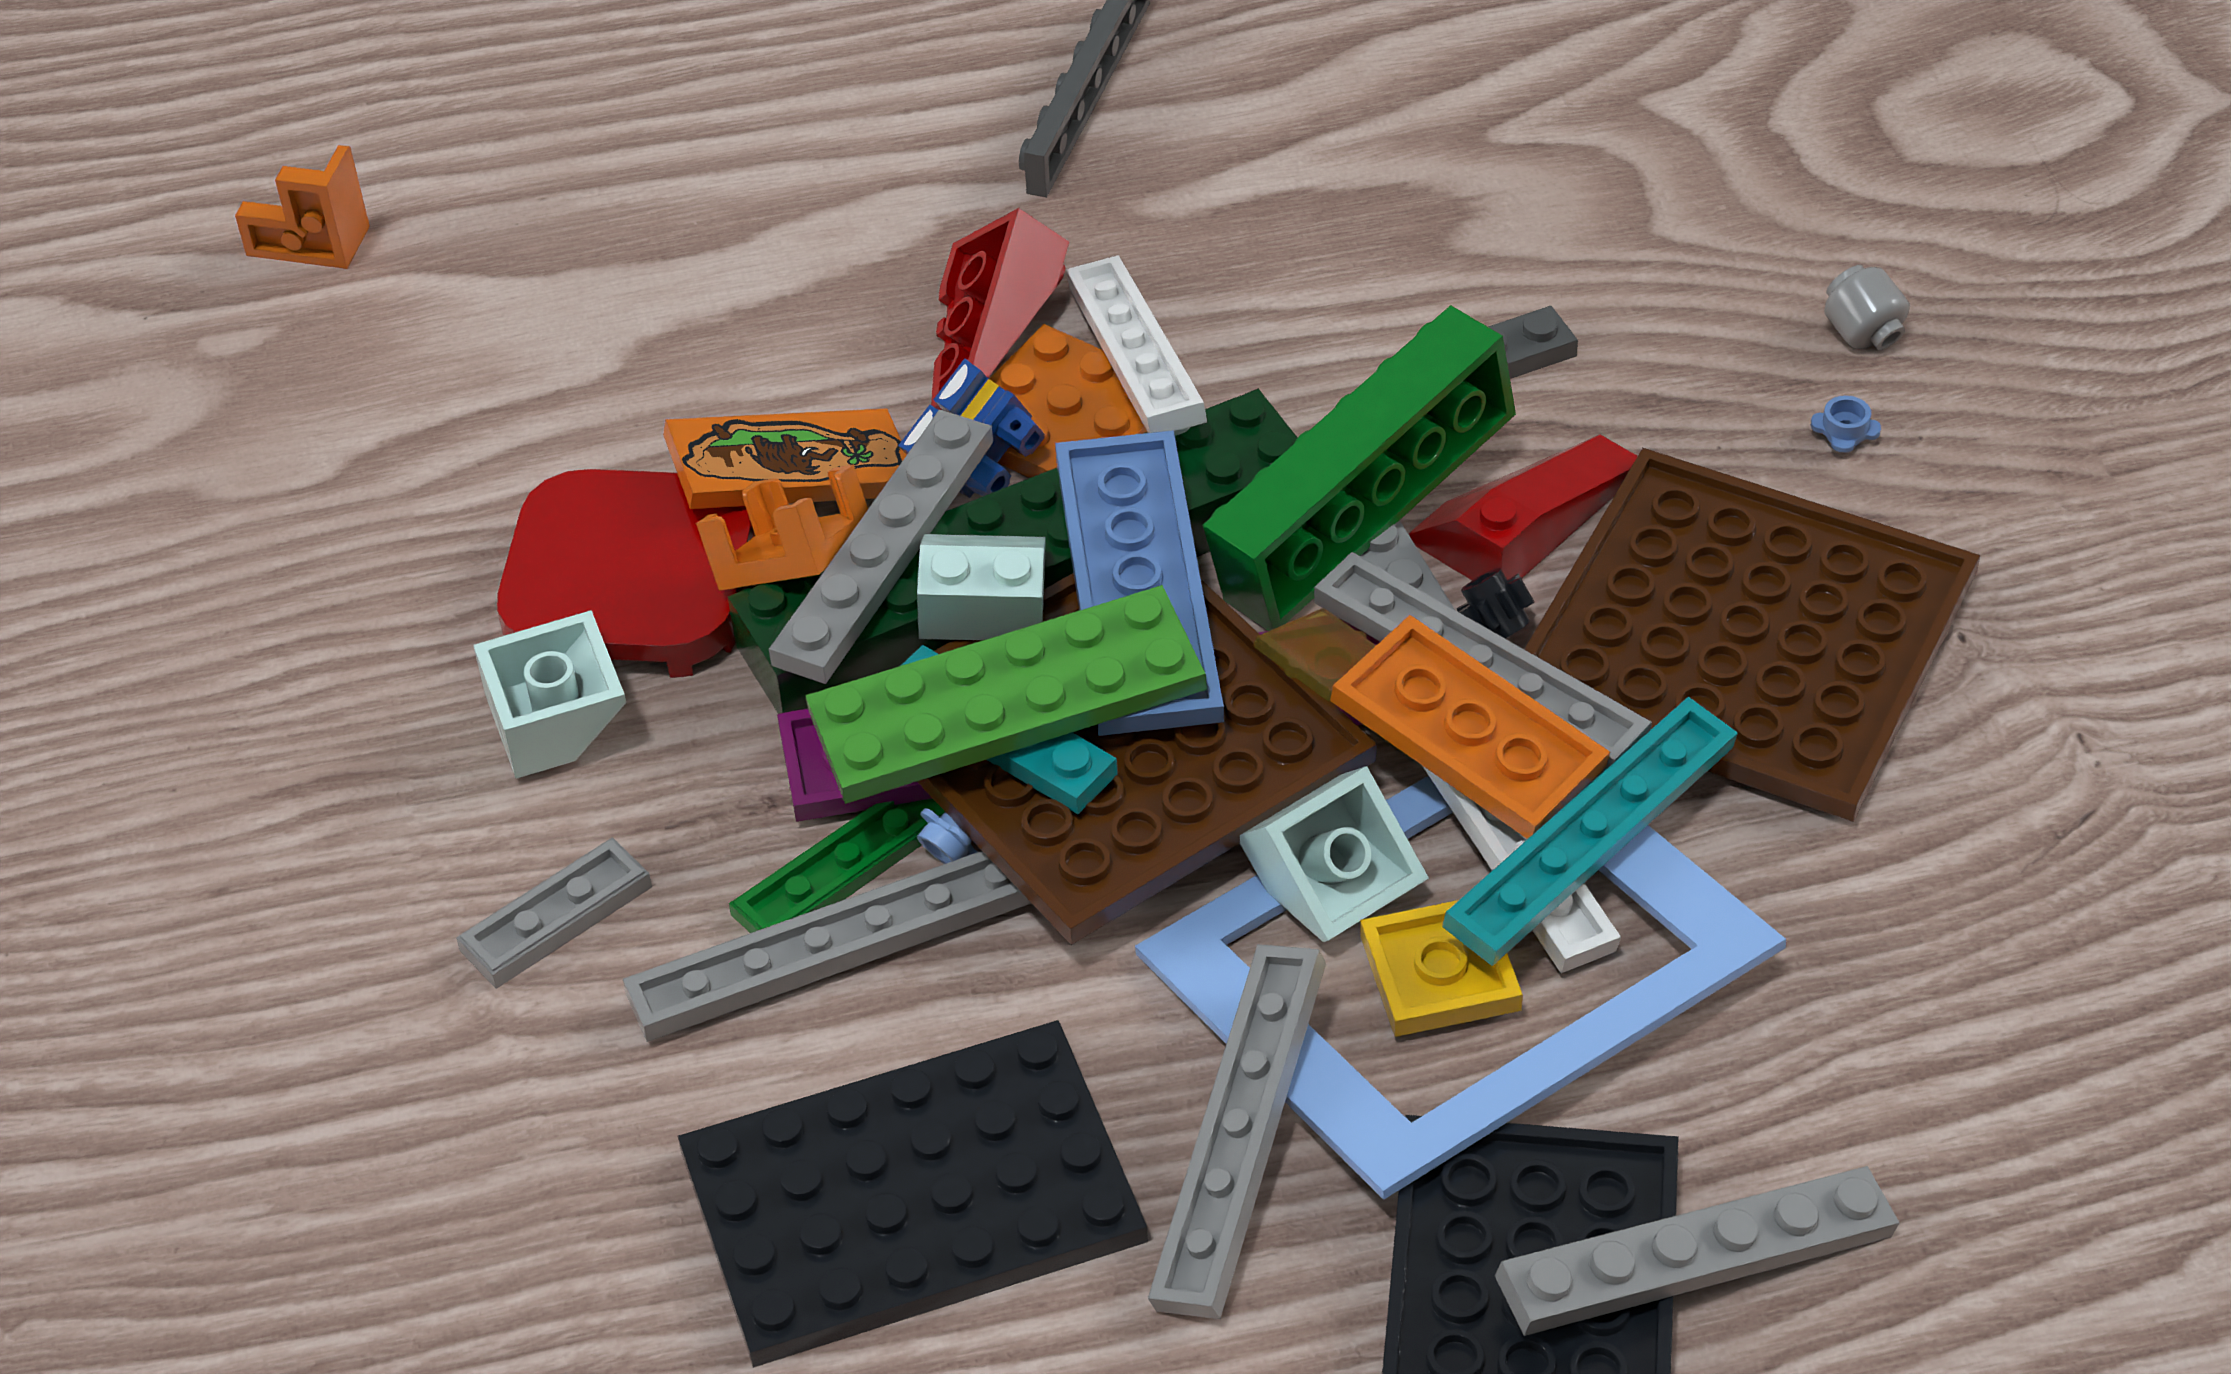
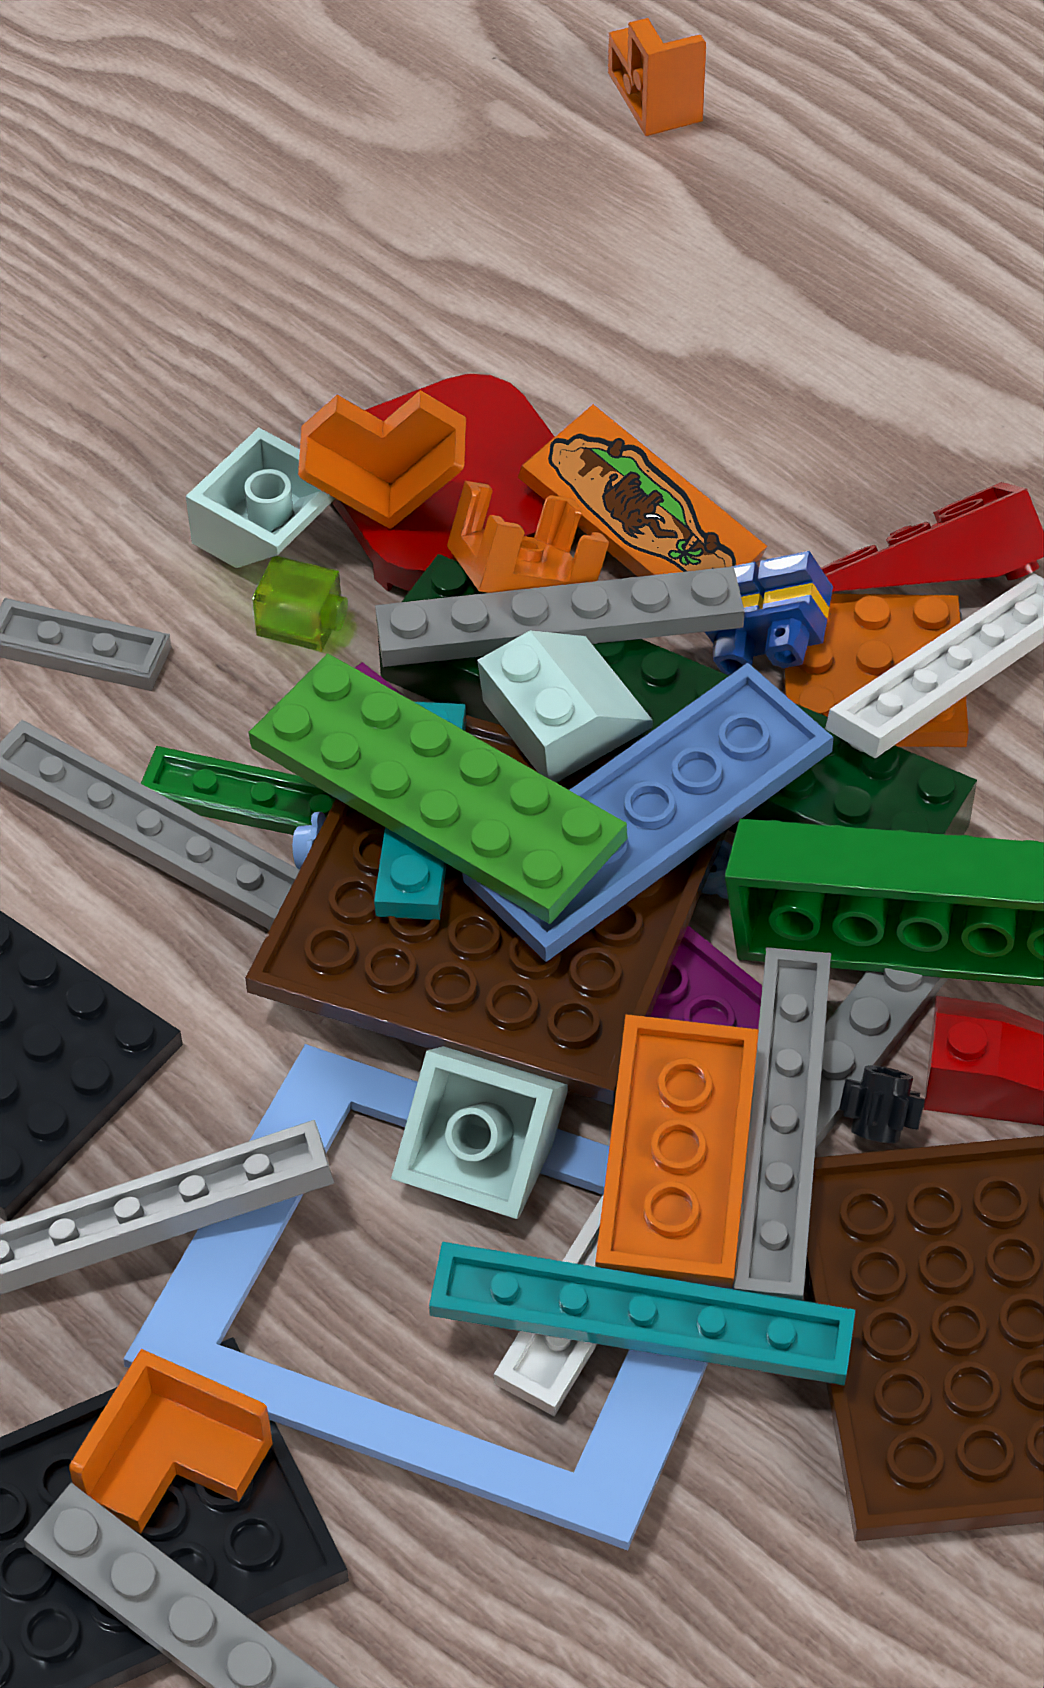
camera: 55 degrees right, 5 degrees up
(619, 566) = (380, 464): none -> orange panel
(668, 729) = (298, 603): none -> clear neon green brick
(1315, 649) = (698, 985): clear yellow piece -> none
(1432, 976) = (396, 1275): yellow plate -> none
(1481, 1177) = (164, 1426): none -> orange panel

